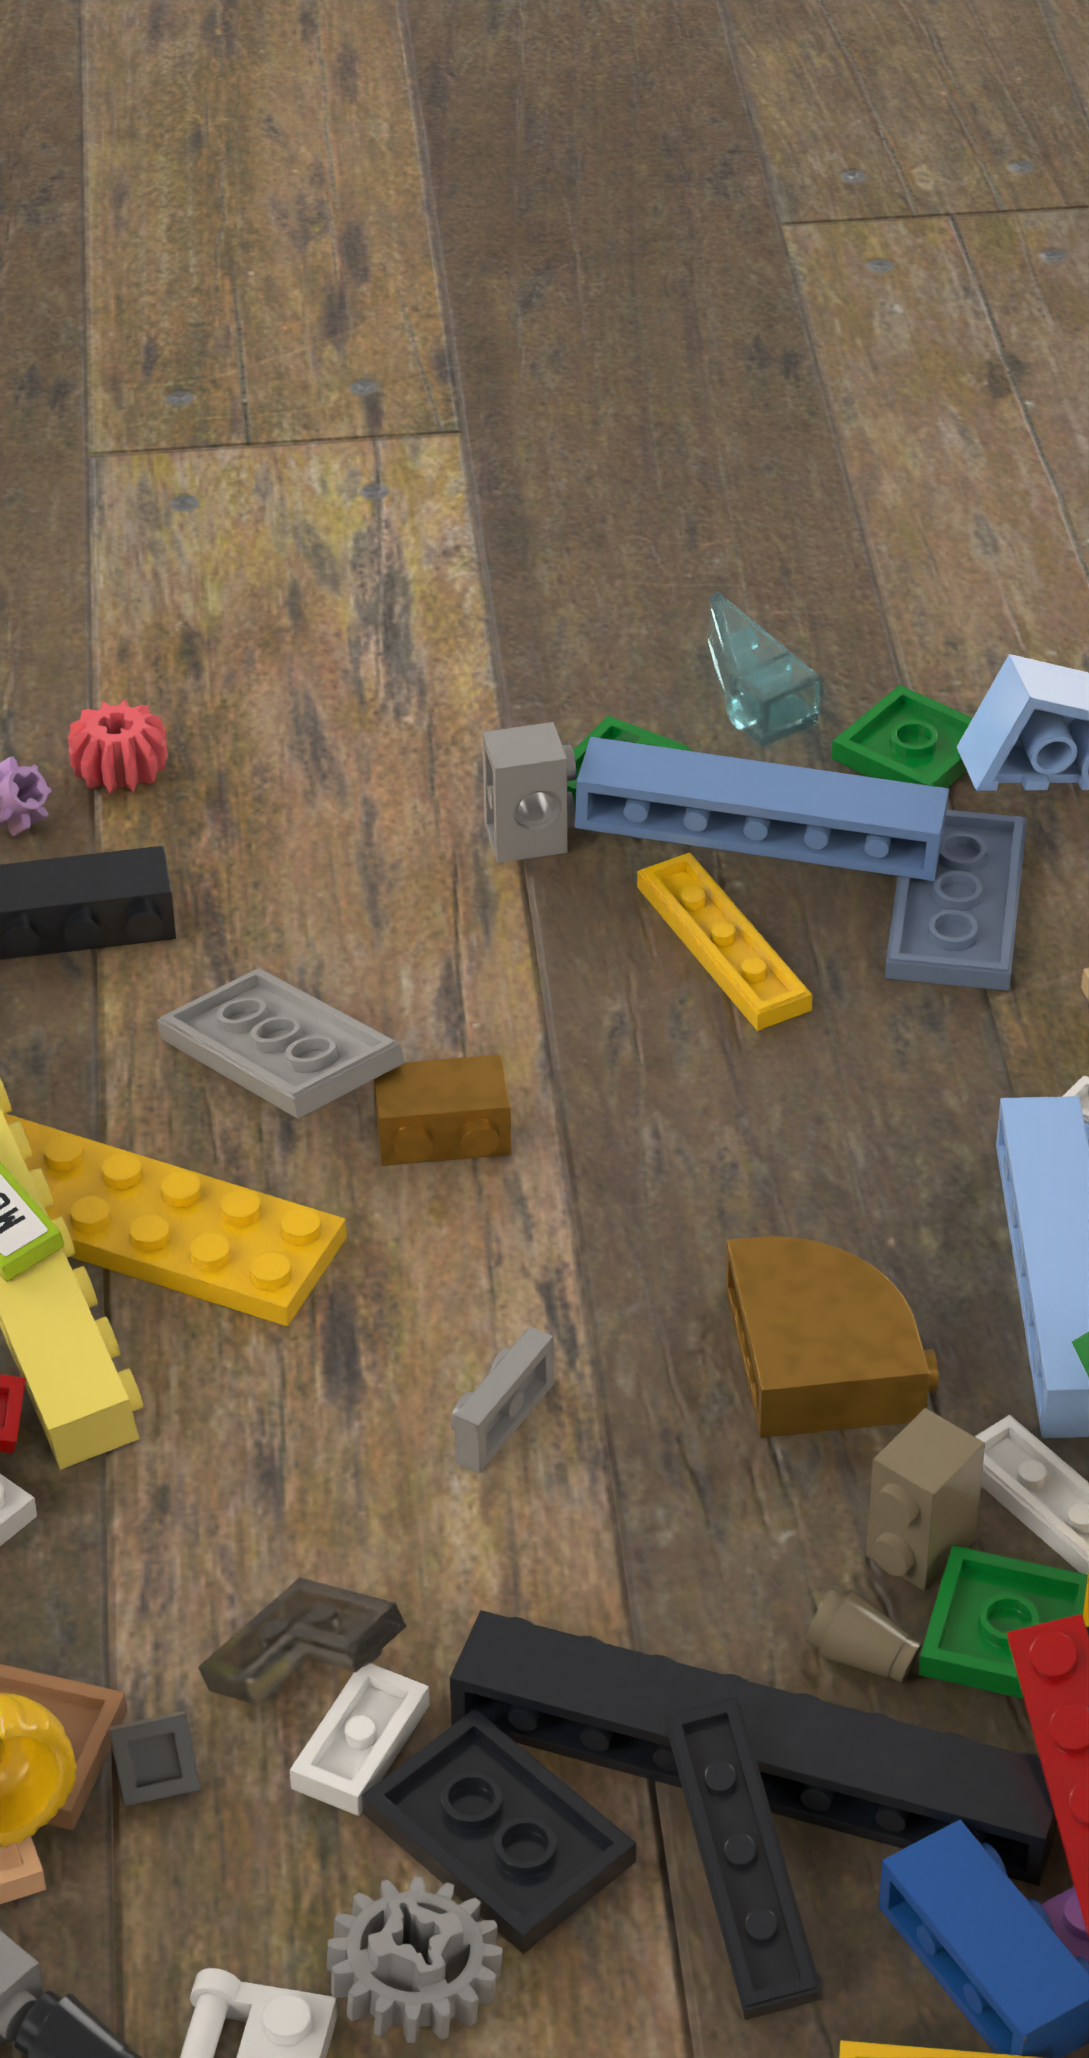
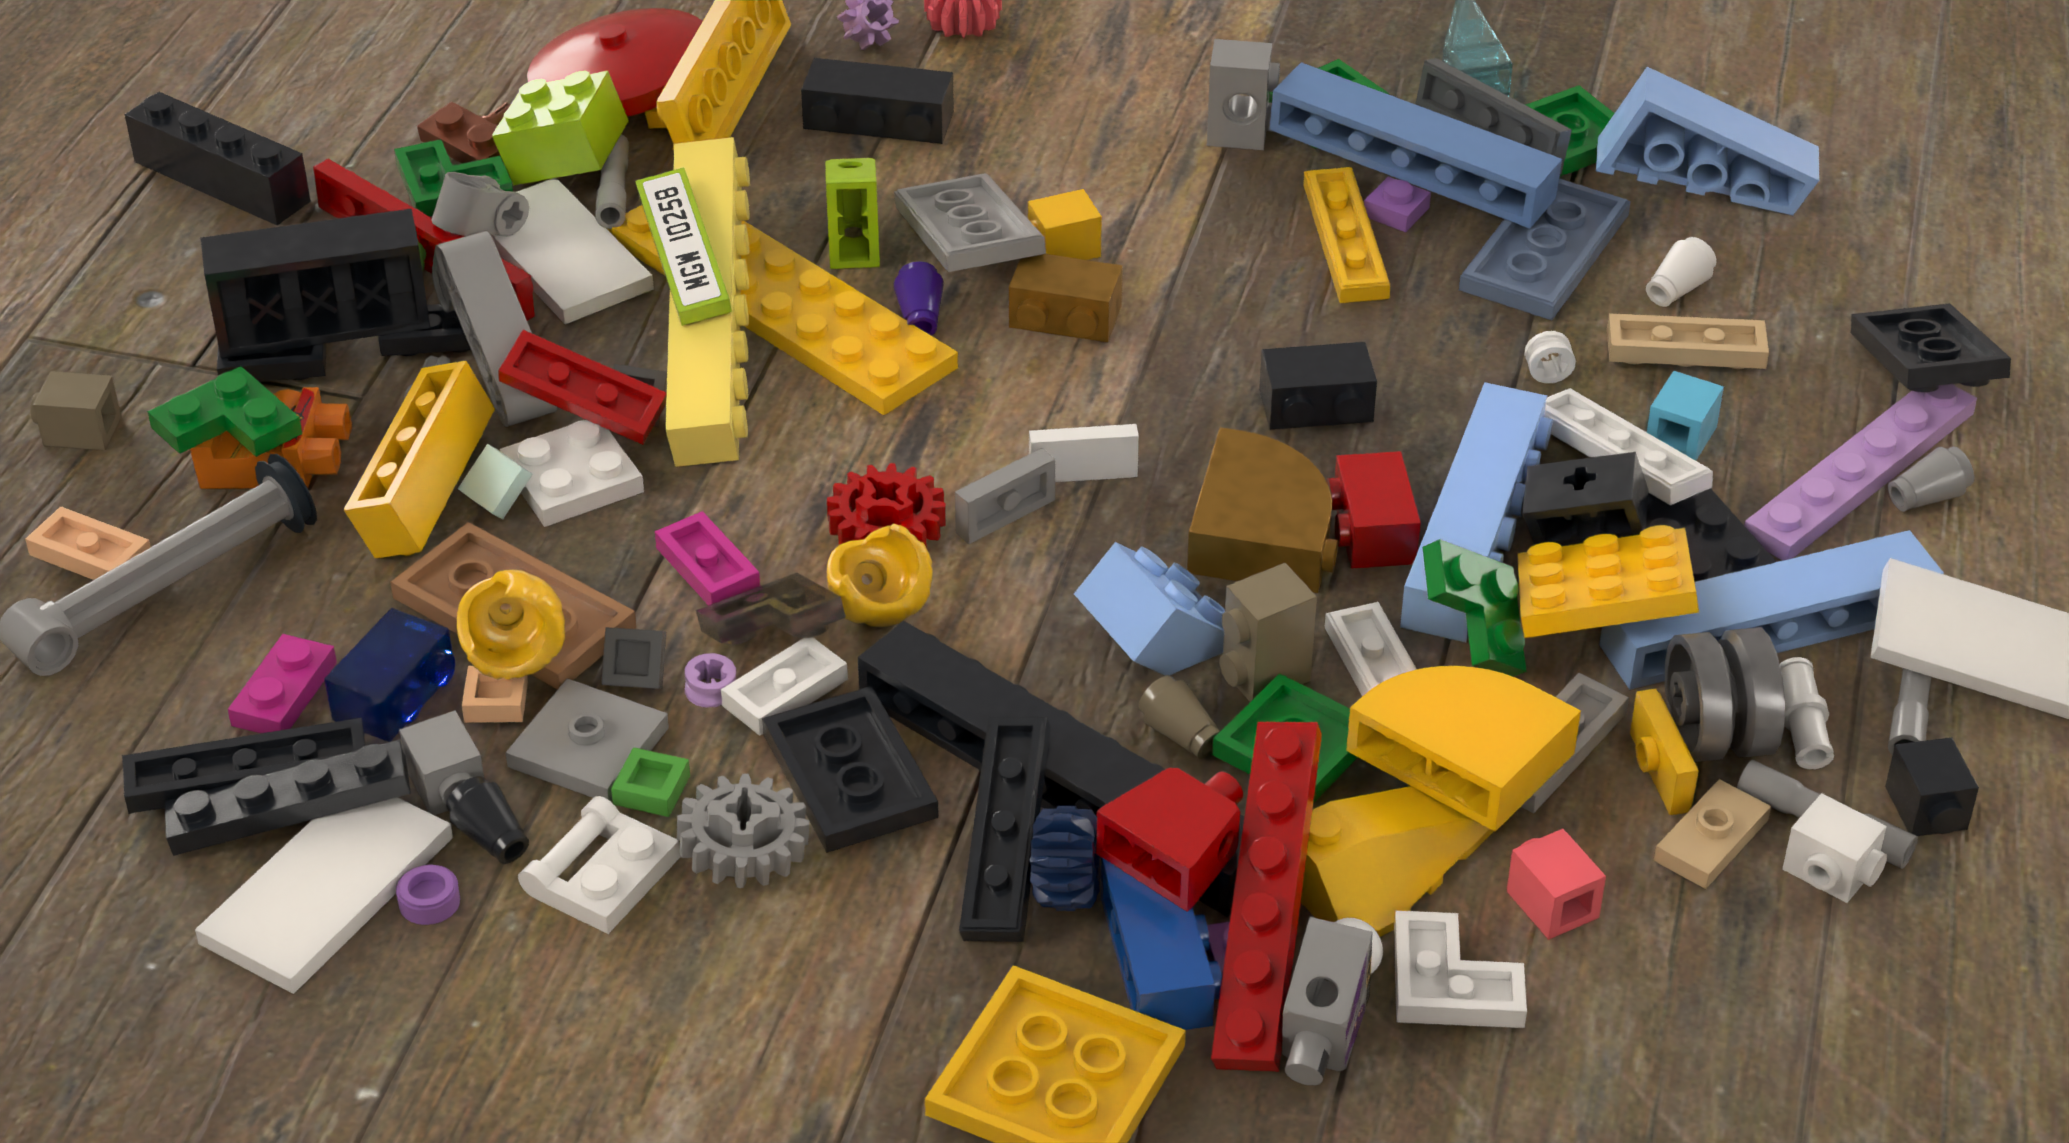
camera: 20 degrees right, 0 degrees up
(122, 1040) = (852, 203): none -> lime torso
(143, 1890) = (585, 738): none -> light grey plate
(176, 1591) = (706, 558): none -> dark pink plate
(258, 1779) = (707, 667): none -> lavender bush
(259, 1926) = (650, 782): none -> bright green plate
(261, 1155) = (919, 295): none -> dark purple cone
(369, 1462) = (886, 500): none -> red gear
(402, 1009) = (1068, 224): none -> yellow brick
(431, 1551) = (897, 575): none -> yellow piece
(577, 1310) = (1090, 451): none -> white tile
(763, 885) = (1397, 204): none -> medium lavender plate
(764, 1505) = (1153, 610): none -> light blue slope
(798, 738) = (1479, 105): none -> dark grey tile
(799, 1150) = (1317, 385): none -> black brick
(837, 1875) = (1065, 858): none -> dark blue gear
(954, 1294) = (1374, 510): none -> red brick
(966, 1807) = (1173, 832): none -> red torso
(1042, 1041) = (1543, 345): none -> white bush

